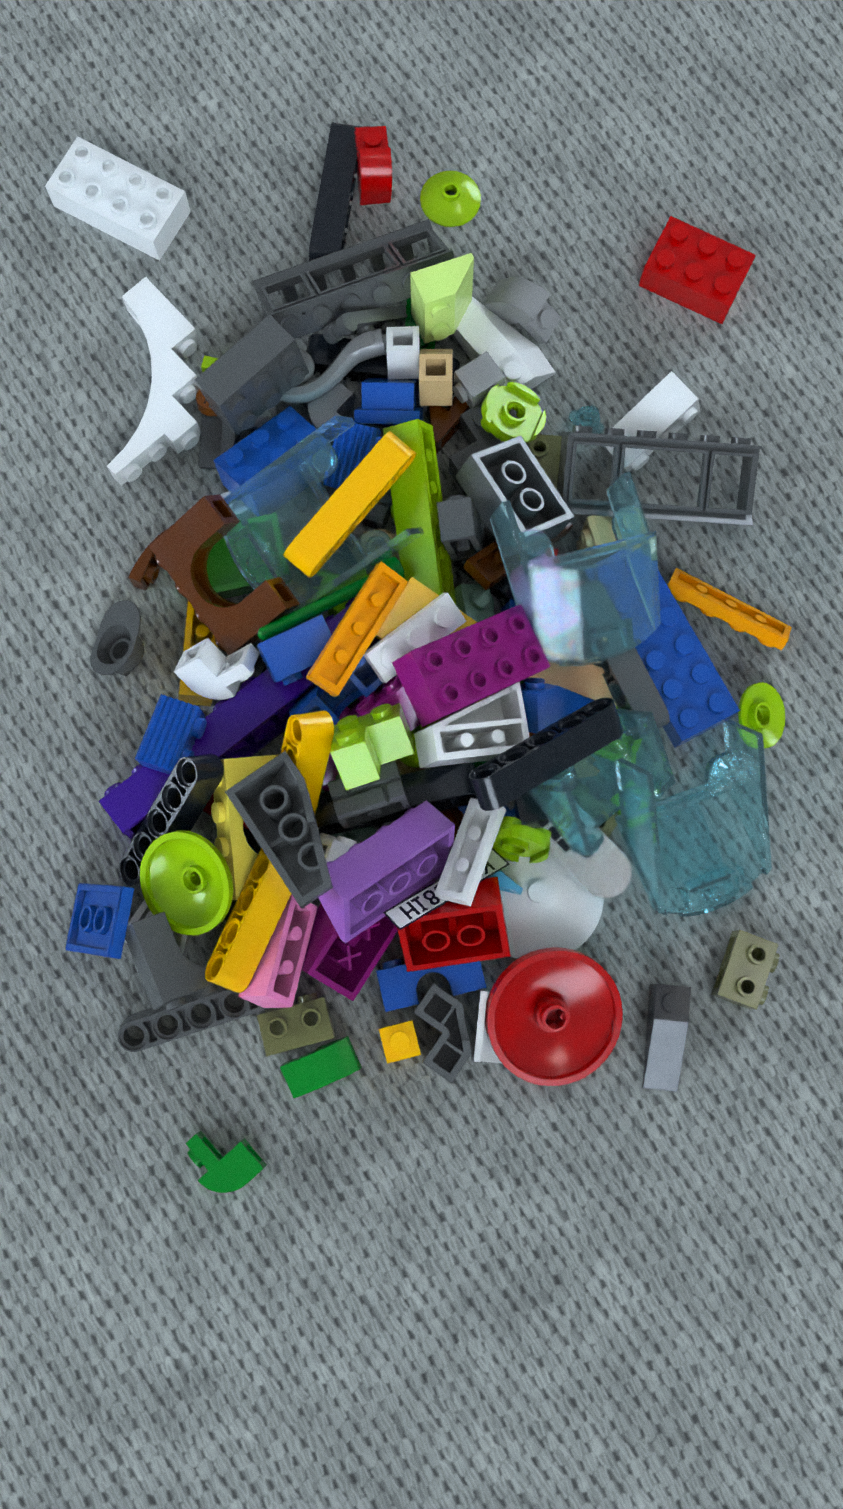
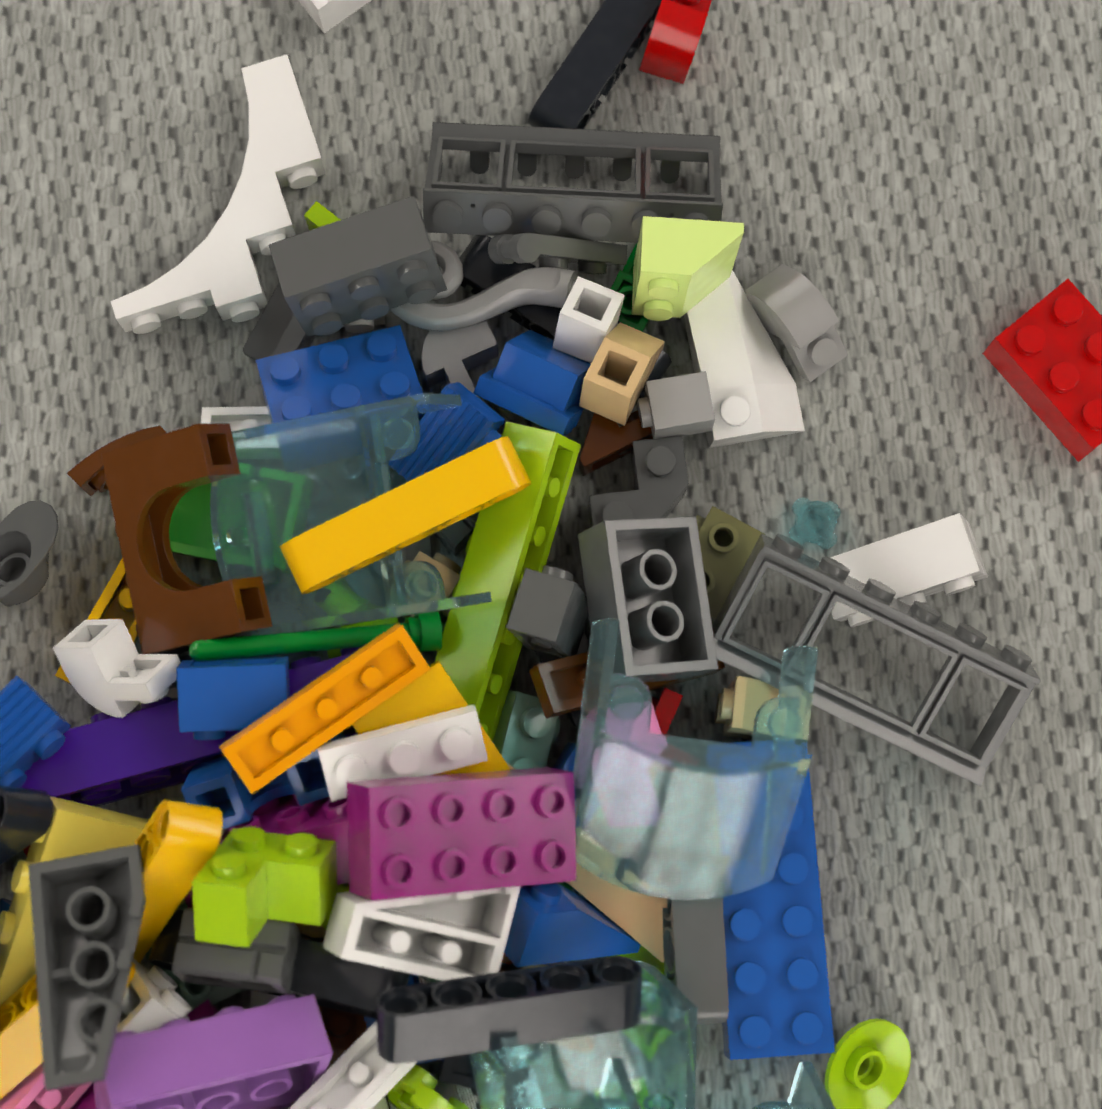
camera: 25 degrees right, 0 degrees up
(450, 209) = (767, 133): lime dish -> none
(501, 424) = (678, 481): lime plate -> none
(729, 609) = (893, 890): light orange plate -> none

